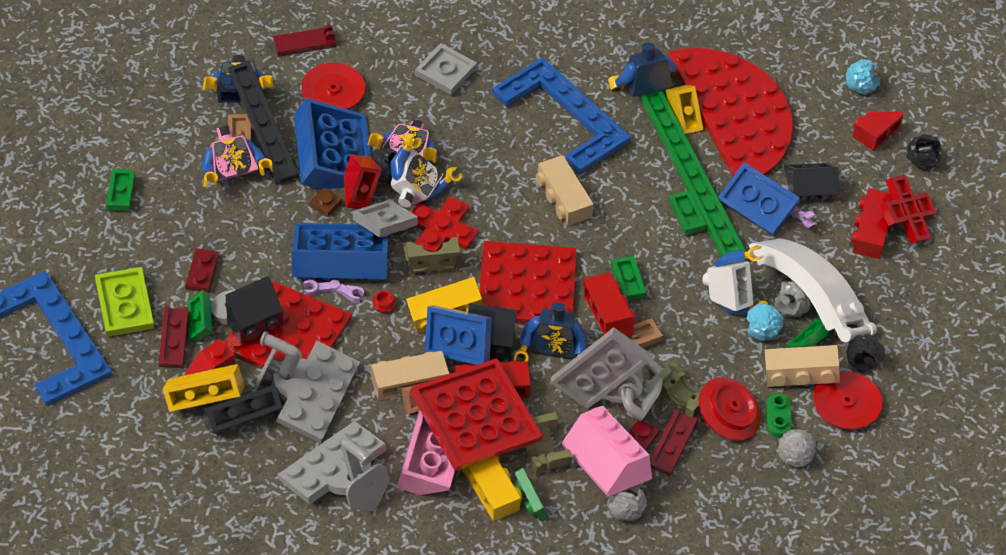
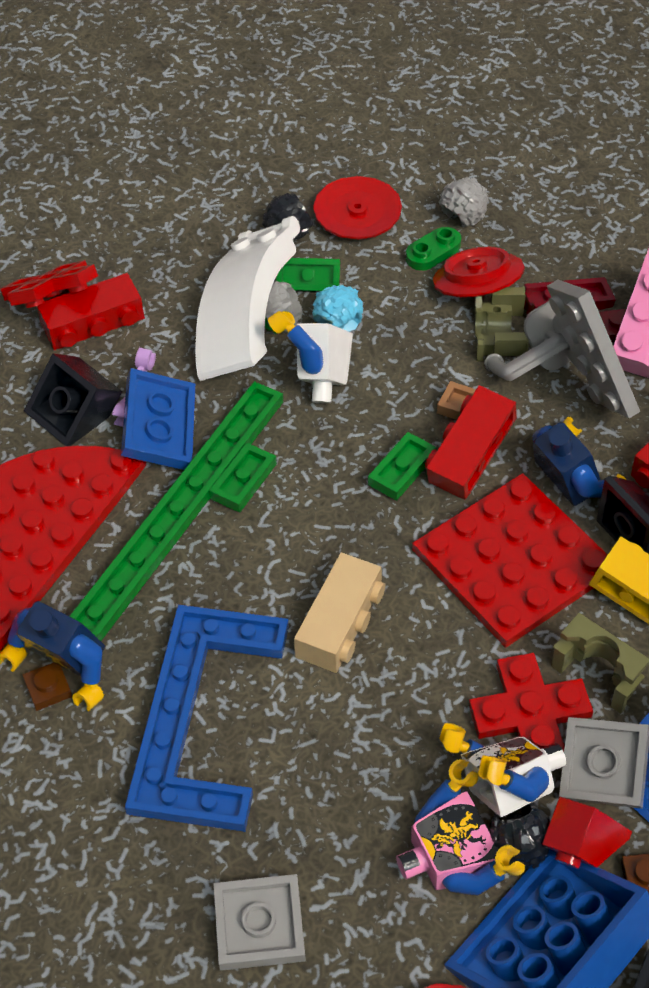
camera: 125 degrees left, 0 degrees up
(685, 107) = (66, 582): yellow slope -> none
(802, 366) = (363, 248): tan brick -> none

